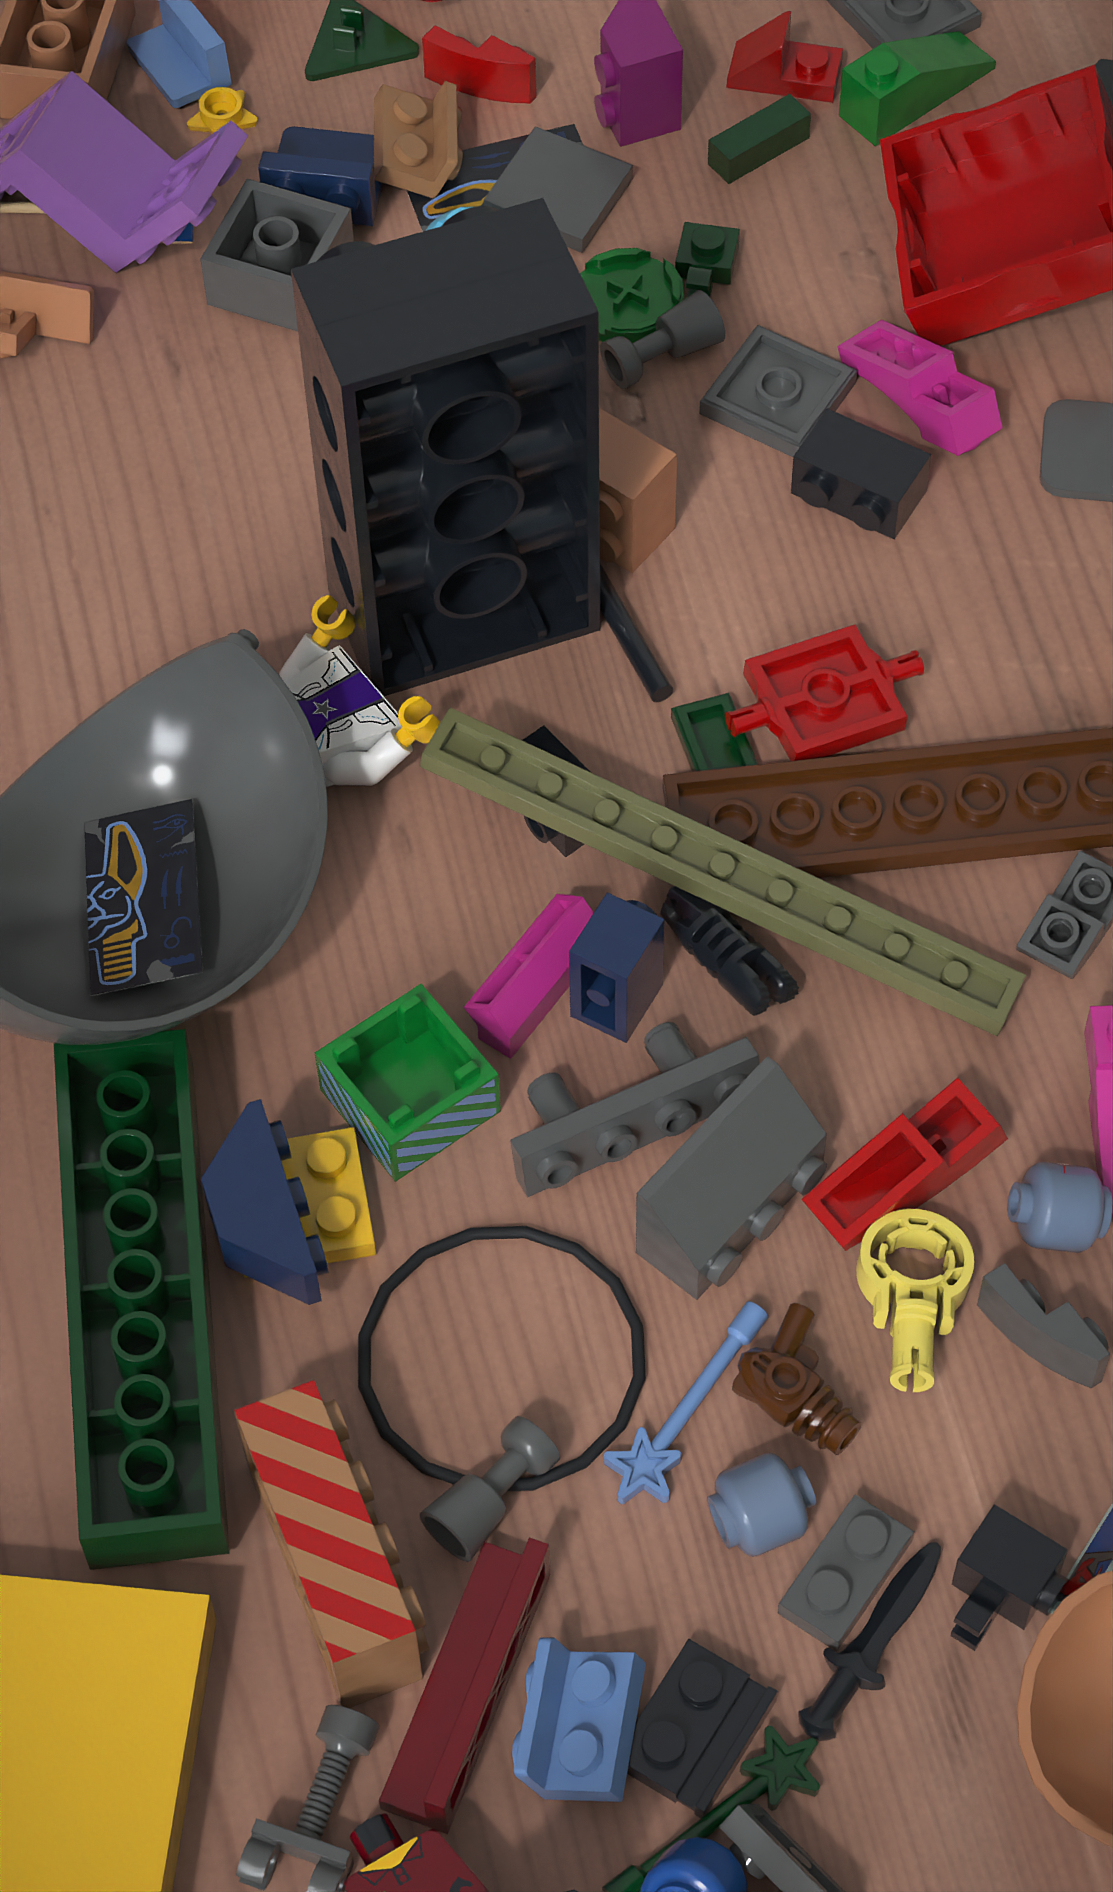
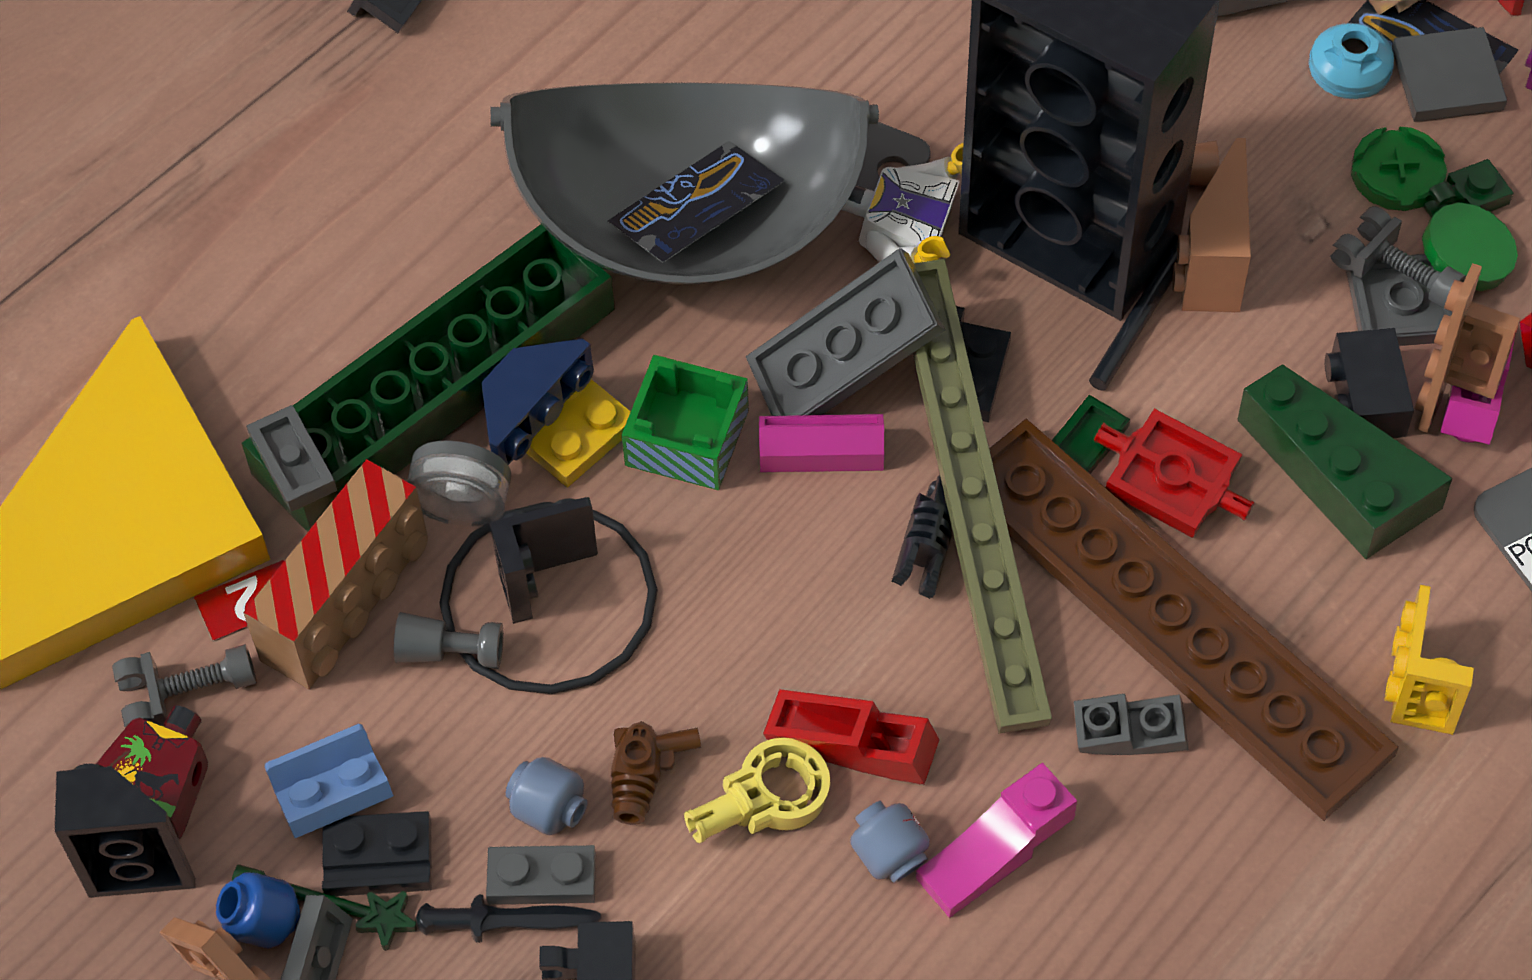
camera: 55 degrees right, 0 degrees up
(159, 1491) = (291, 458): none -> dark grey plate
(252, 1676) = (224, 605): none -> red sticker
(313, 1337) = (460, 482): none -> clear piece
(454, 866) = (847, 340): none -> dark grey tile
(461, 1351) = (539, 542): none -> black bracket
(466, 1685) = (315, 712): dark red fence -> none
(614, 1127) = (780, 569): dark grey plate -> none
(616, 966) = (852, 476): dark blue brick -> none
(647, 1461) = (537, 718): medium blue piece -> none
(680, 331) = (1402, 206): dark grey piece -> none
(715, 386) = (1383, 234): none -> dark grey bar
(730, 1182) = (749, 634): dark grey slope -> none
(772, 299) = (1469, 235): none -> green tile
(926, 551) = (1341, 461): none -> dark green wedge
(930, 355) = (1473, 348): none -> nougat bracket
(1056, 1340) = (795, 899): dark grey slope -> none

